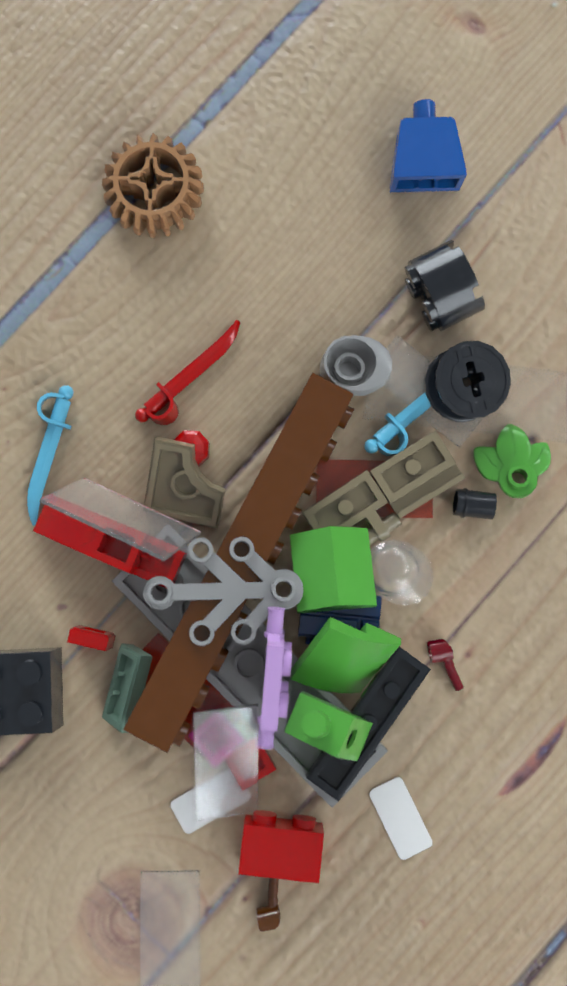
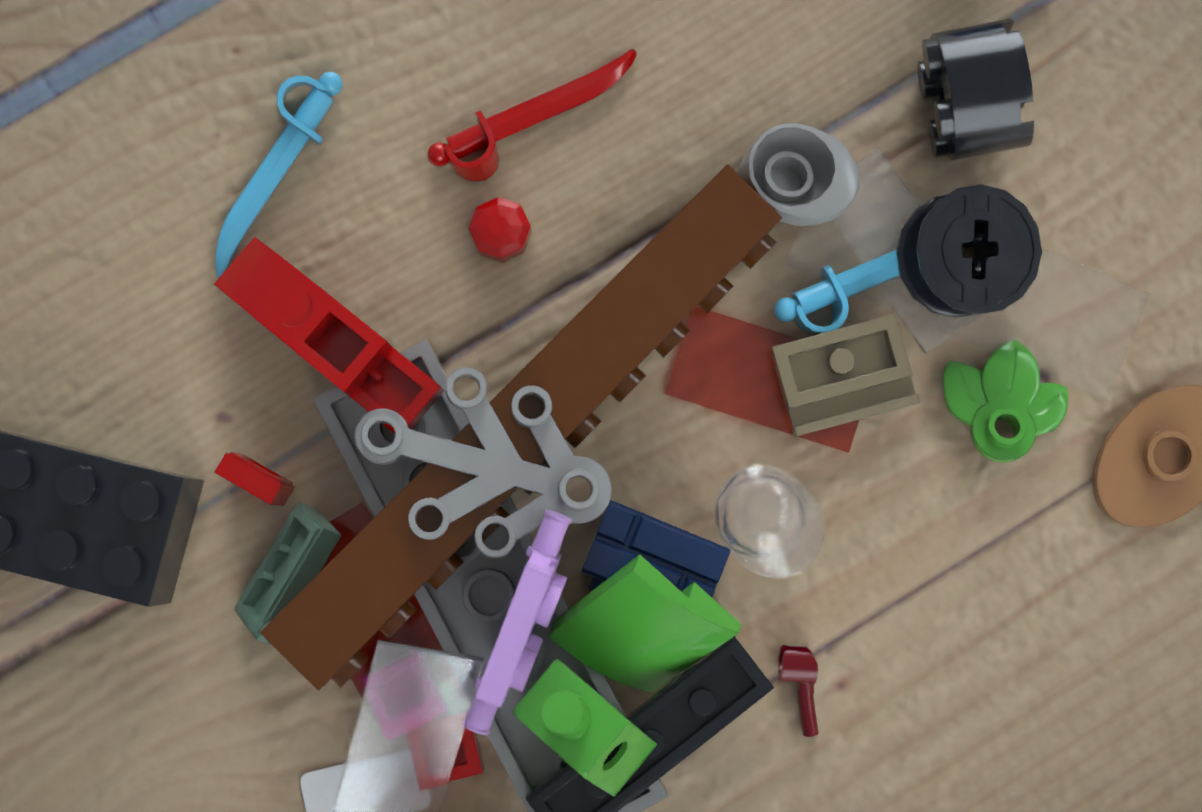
camera: 15 degrees right, 0 degrees up
(122, 518) = (358, 303): clear window -> none
(179, 487) = (463, 284): dark tan tile -> none
(333, 569) = (668, 483): bright green slope -> none
(352, 504) = (715, 395): dark tan plate -> none
(474, 504) = (922, 449): black piece -> none

